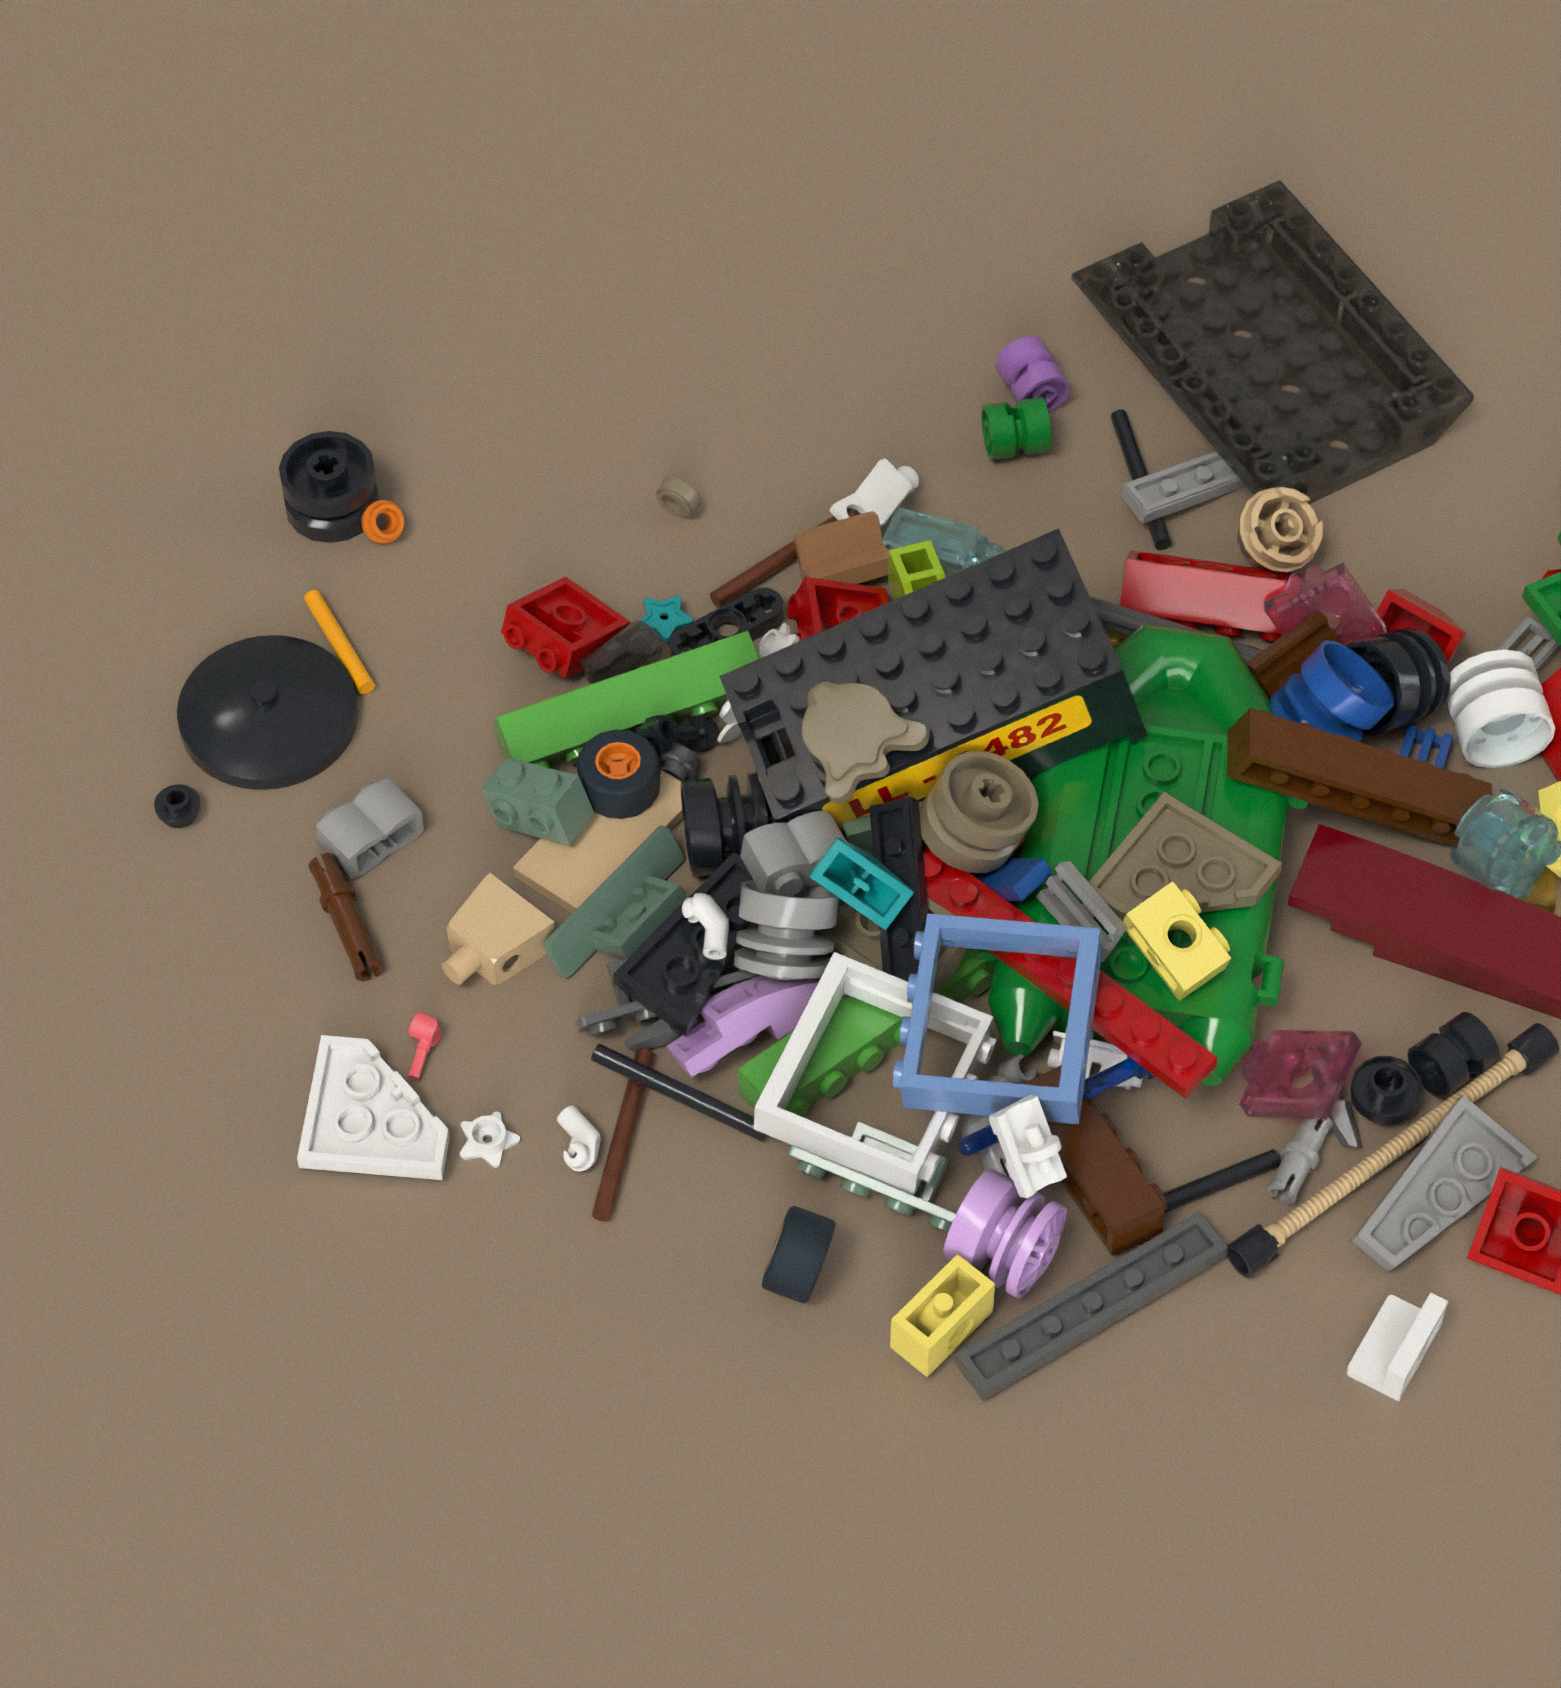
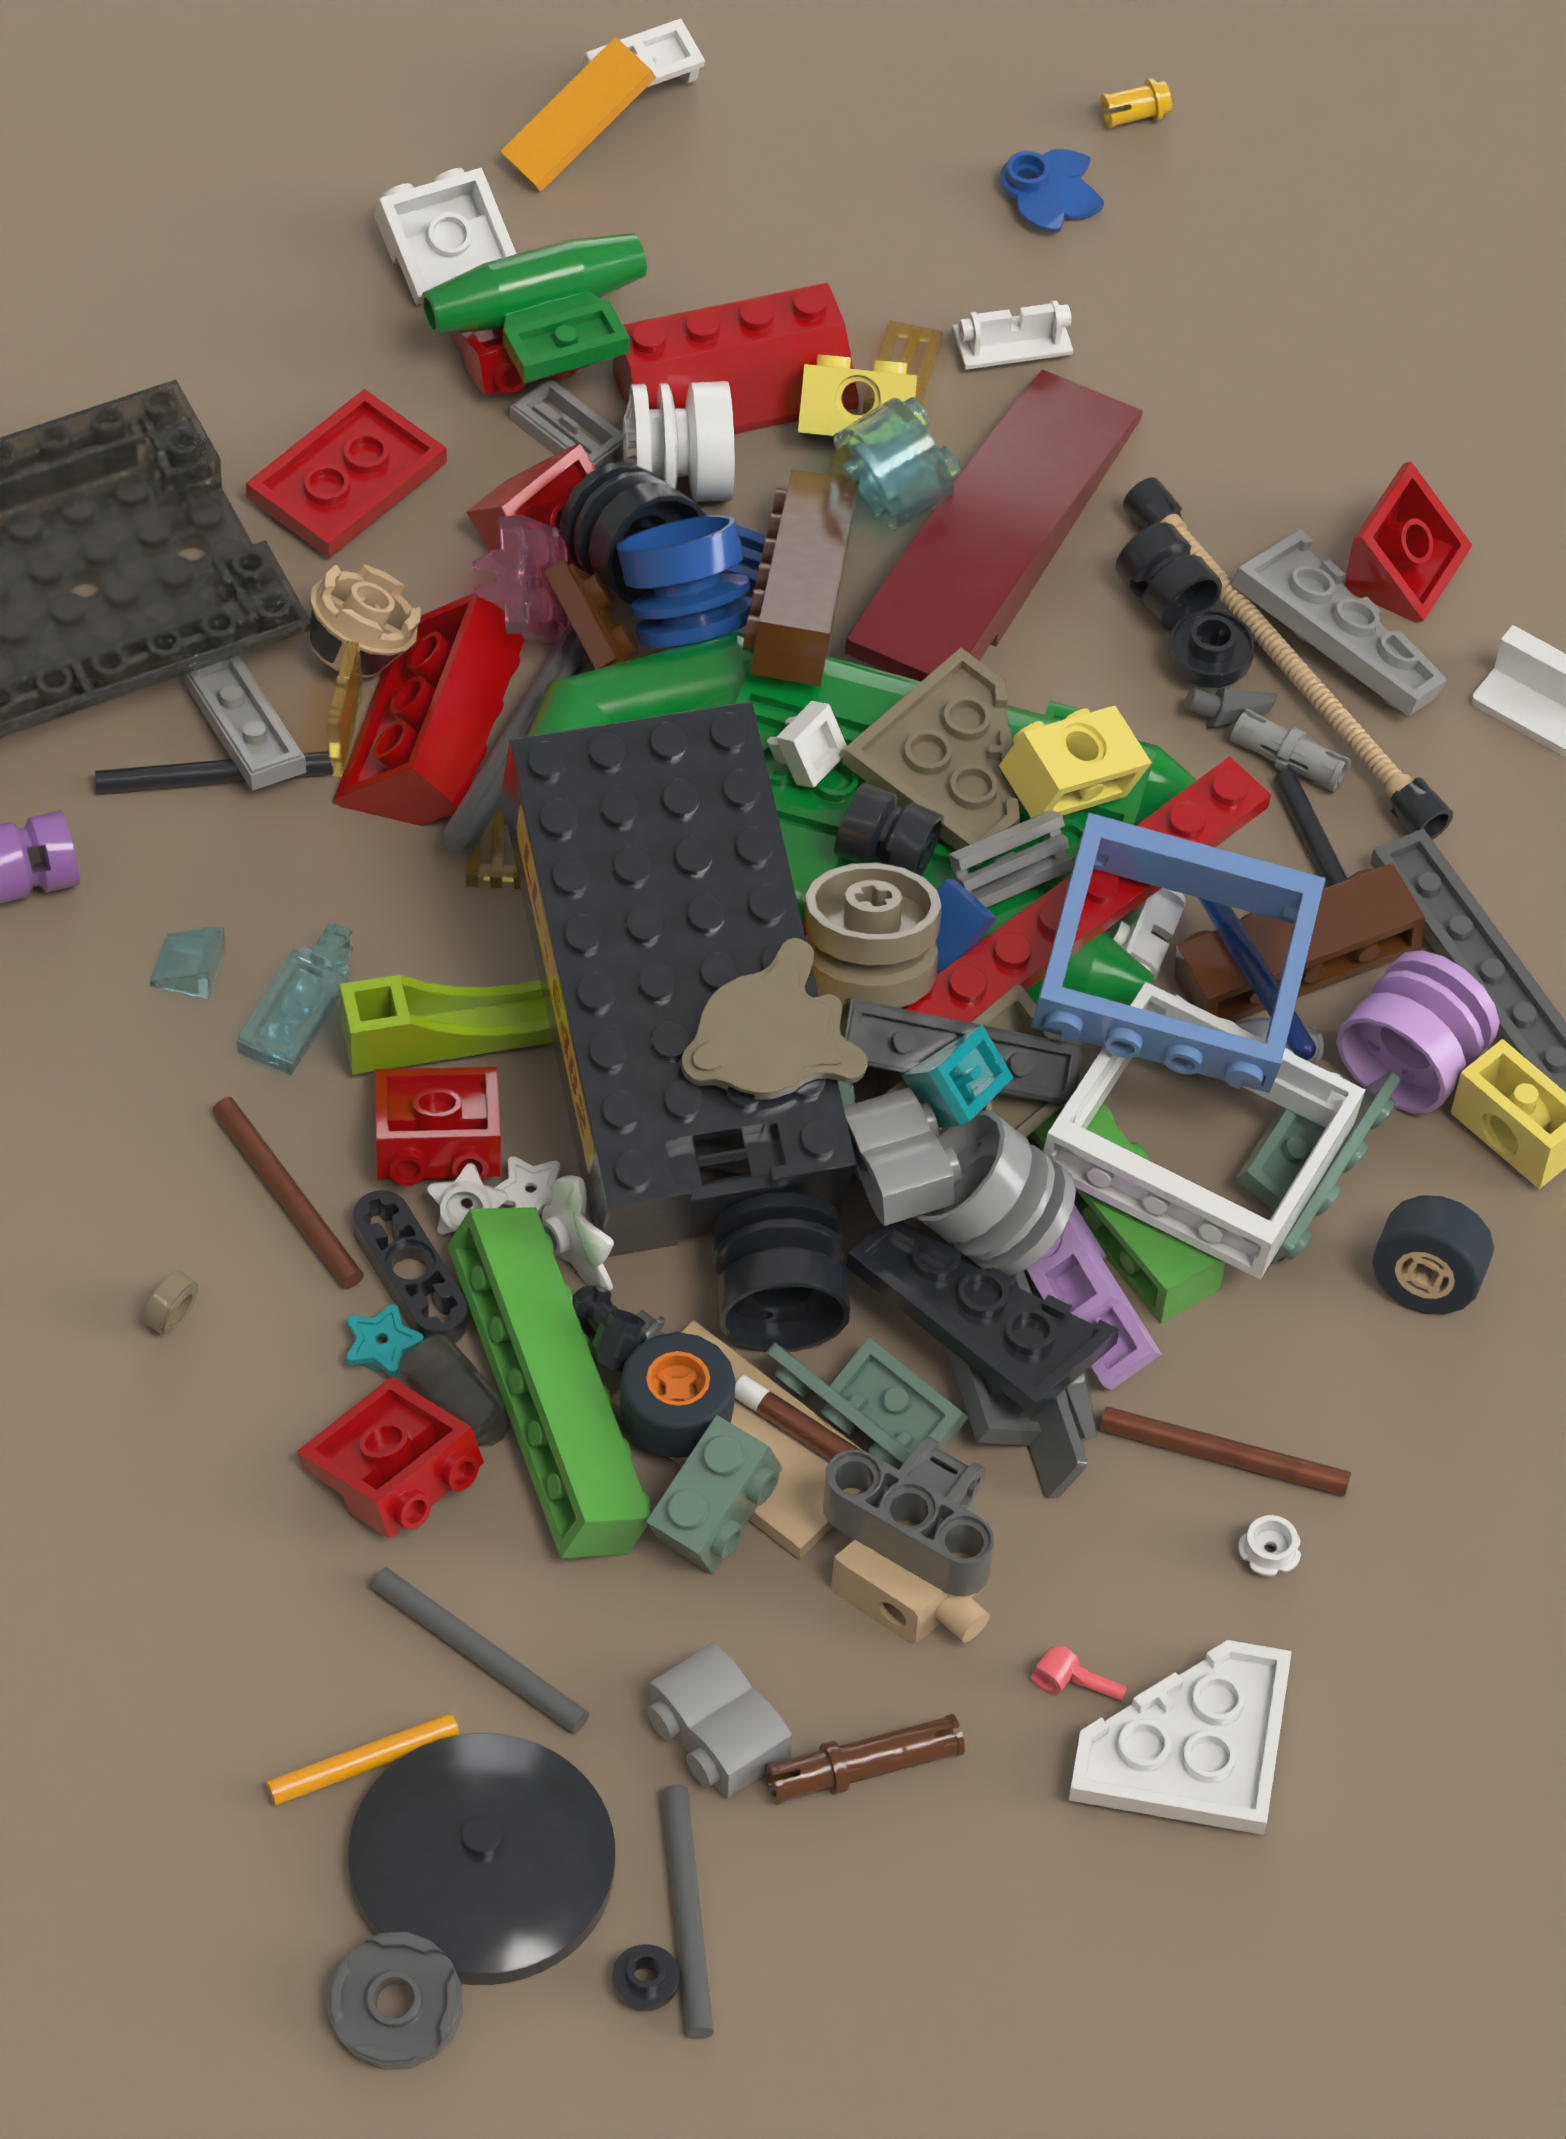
camera: 90 degrees left, 0 degrees up
(164, 686) = (423, 2029): none -> dark grey tile
(229, 827) = (687, 1912): none -> dark grey bar
(327, 485) = (86, 1745): black wheel -> none
(394, 520) = (154, 1683): orange plate -> none
(424, 697) = (480, 1650): none -> dark grey bar
(485, 1127) = (1228, 1595): white plate -> none
(531, 915) = (927, 1490): none -> dark grey piece
(538, 1151) = (1274, 1532): none -> white plate
(584, 1139) = (1238, 1494): white arm -> none
(602, 864) = (790, 1418): none -> copper bar
(676, 1090) = (1175, 1375): black bar -> none
(716, 923) = (973, 1274): white arm -> none
(843, 550) = (320, 1110): medium nougat panel -> none
(880, 492) = (216, 1058): white bracket -> none
(968, 484) = (190, 961): none -> clear light blue slope
(1016, 428) = (120, 887): green wheel -> none
(1028, 1146) = (1362, 949): white hips -> none
(1086, 825) = (886, 833): none -> black wheel
(1165, 771) = (809, 744): none -> white tile
(1191, 528) = (345, 708): none -> clear yellow piece
(1290, 1056) = (1187, 681): clear pink piece -> none
(1433, 522) = (346, 473): none -> red plate

